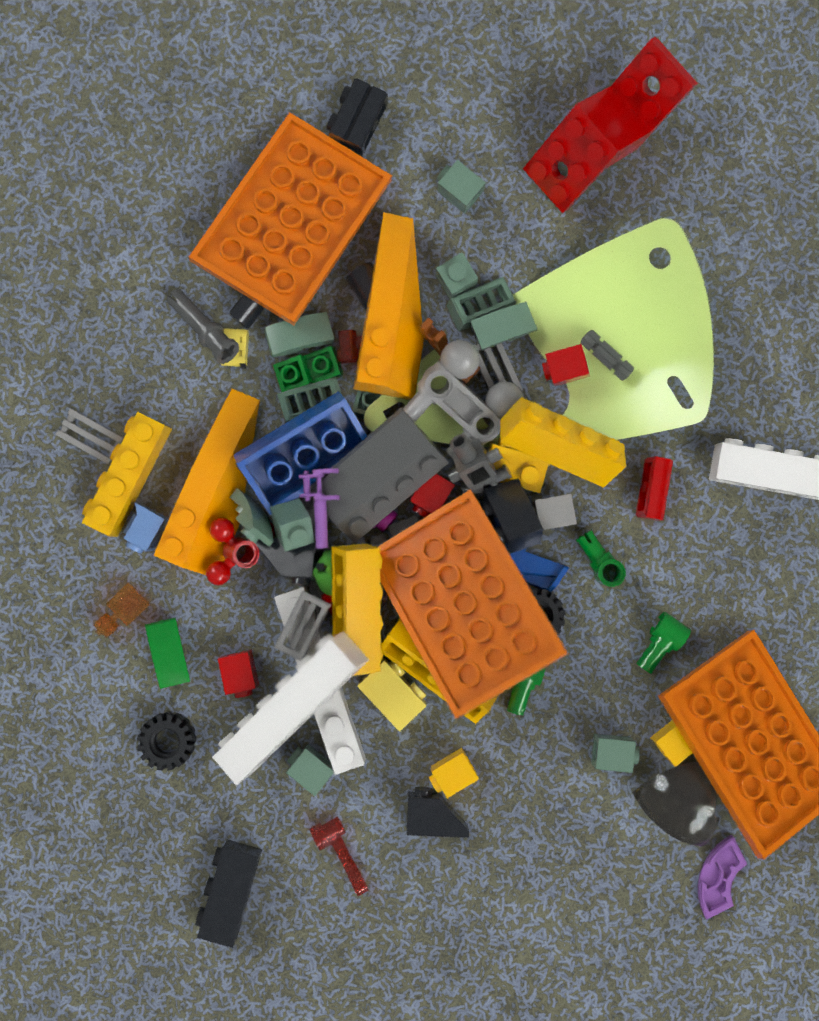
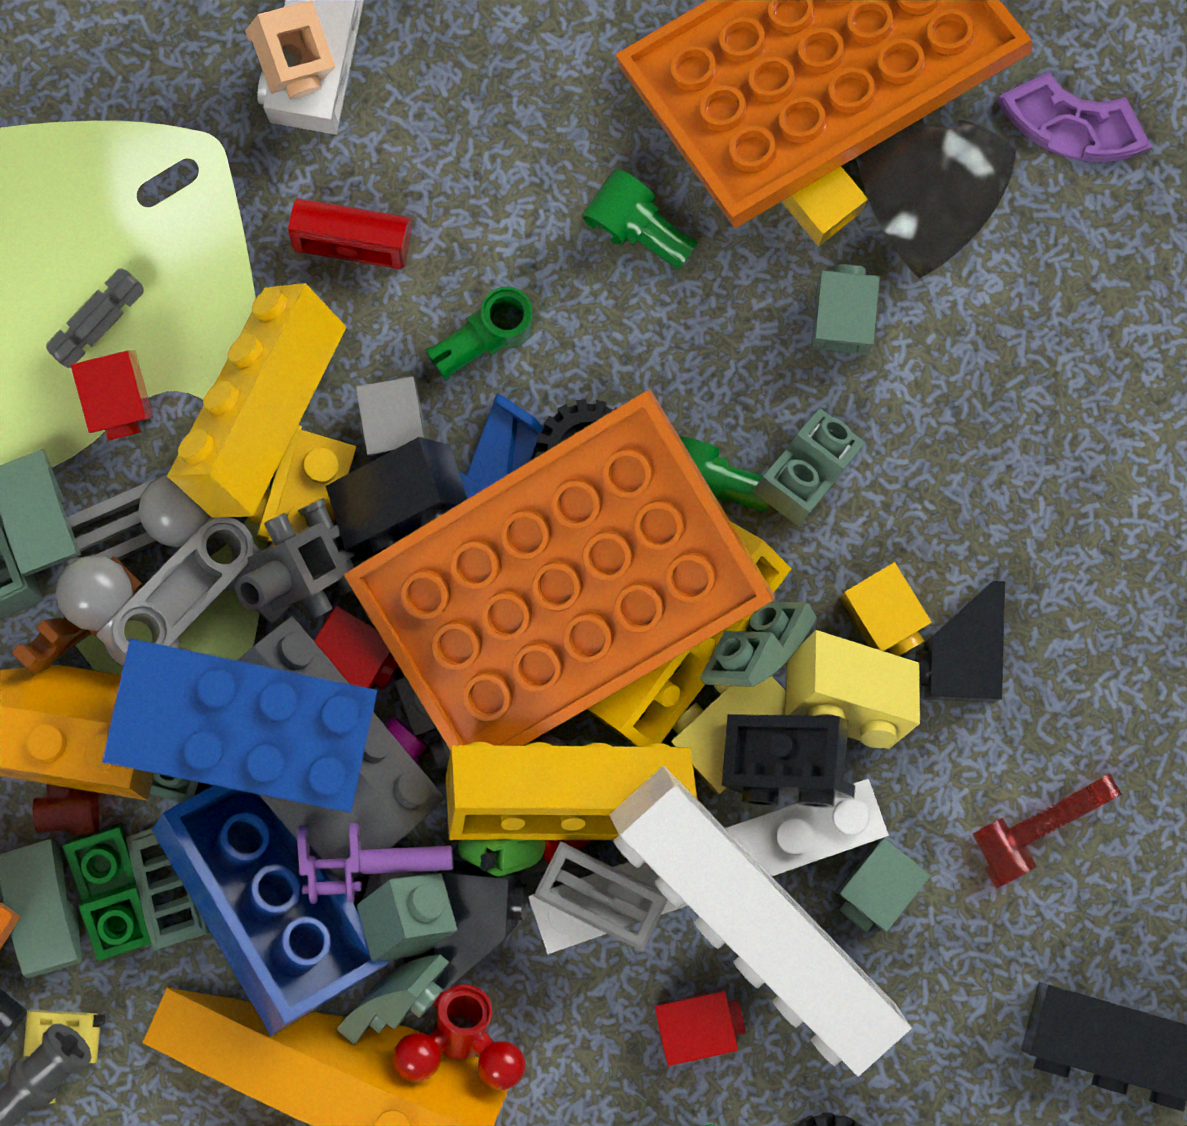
camera: 85 degrees left, 5 degrees down
(375, 723) = (786, 758): none -> black bracket
(387, 439) = (239, 725): none -> blue brick
(410, 756) = (857, 683): none -> light yellow brick
(432, 708) = (763, 648): none -> sand green slope
(530, 733) = (809, 466): none -> sand green slope
(763, 461) = (296, 31): none -> light nougat brick

